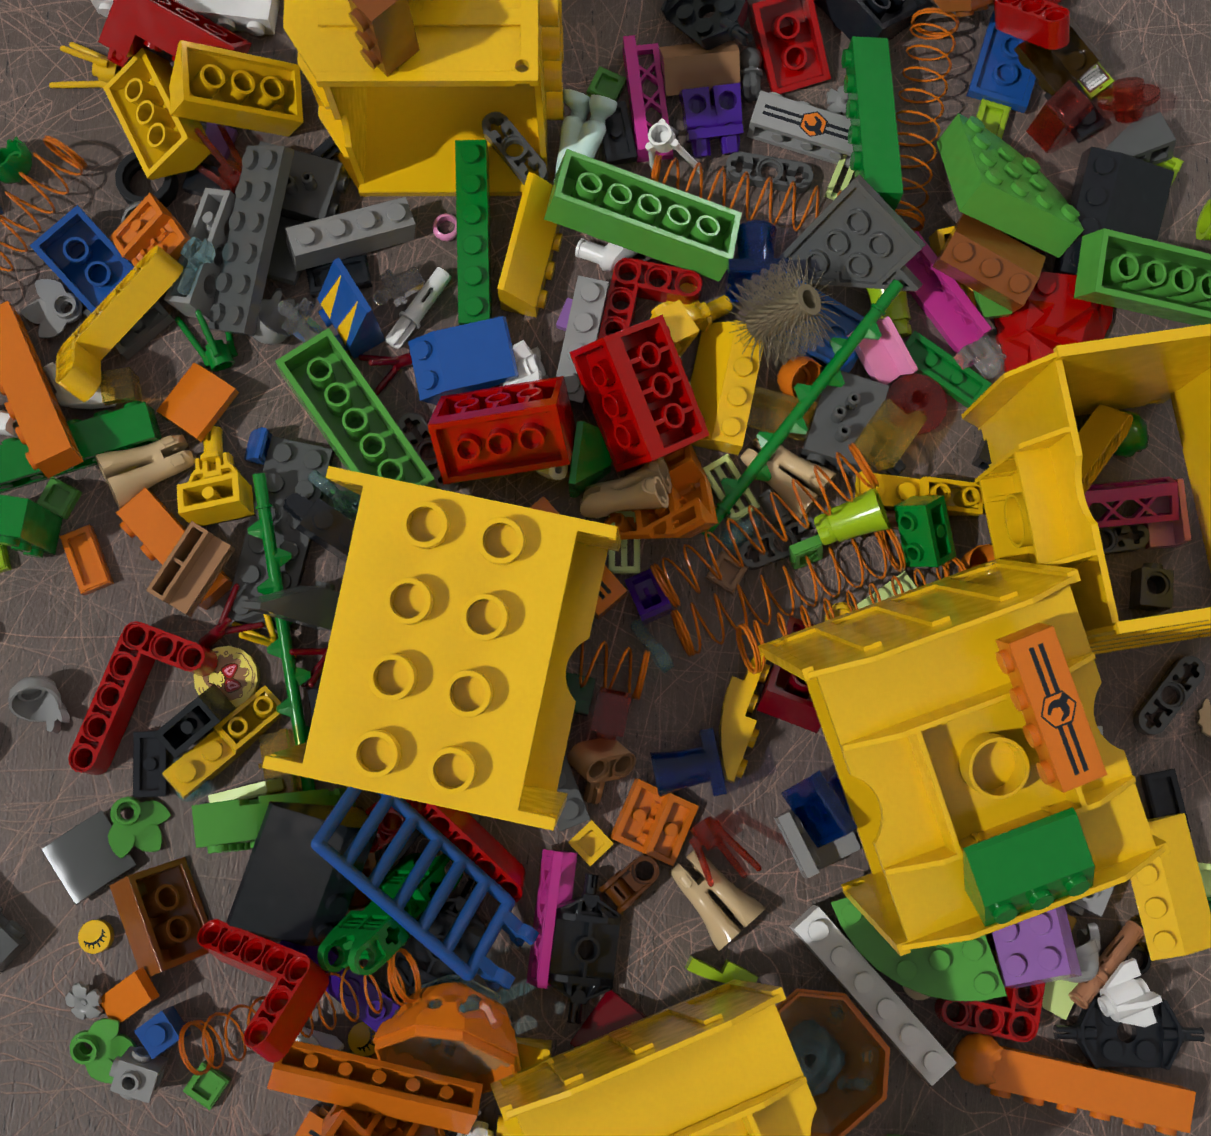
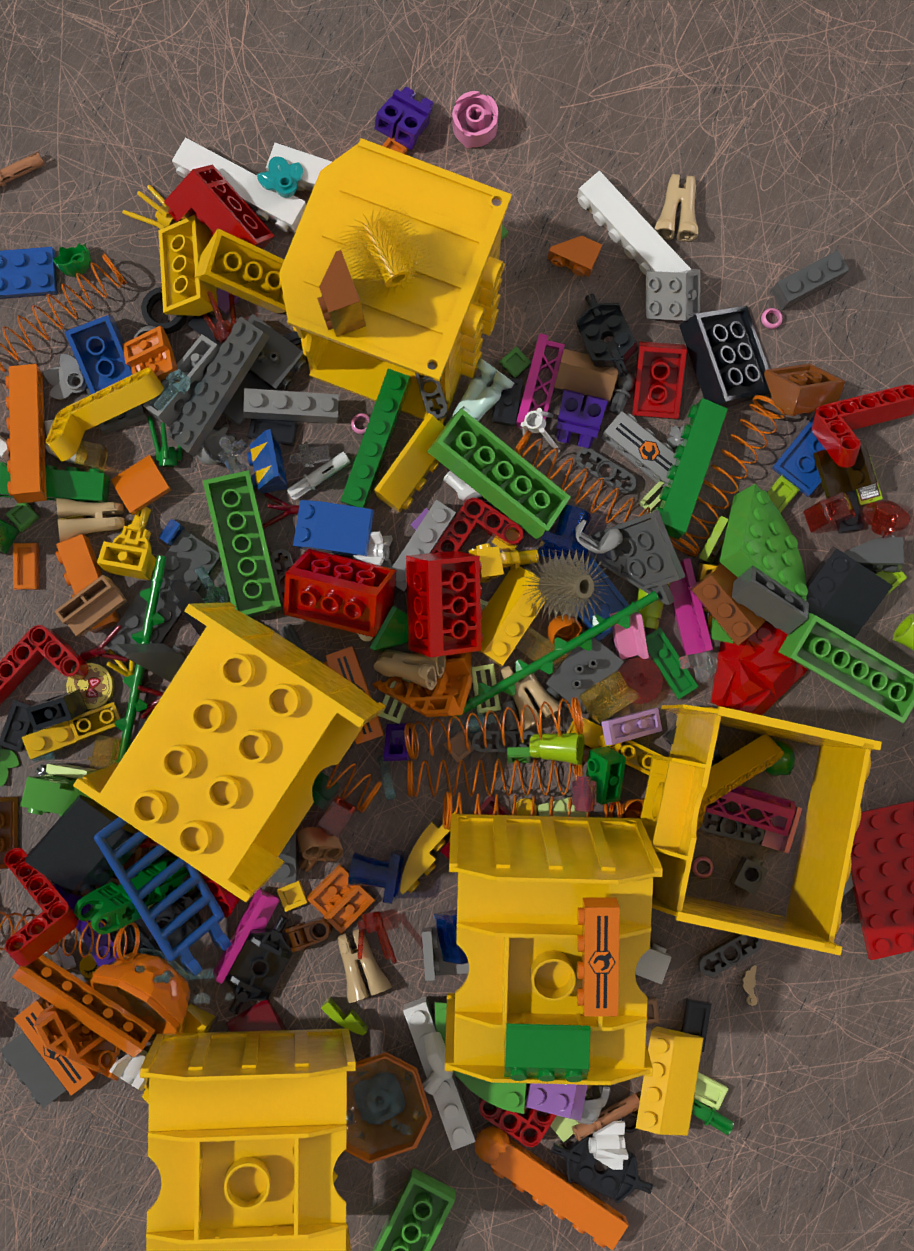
camera: 25 degrees right, 5 degrees up
(813, 241) = (609, 541): none -> light grey piece
(870, 971) = (436, 1057): none -> white arm
(912, 560) = (584, 794): none -> clear pink brick
(931, 459) = (631, 726): none -> lavender plate
(938, 199) = (715, 541): none -> lime tile
(1040, 235) = (770, 600): none -> dark grey brick

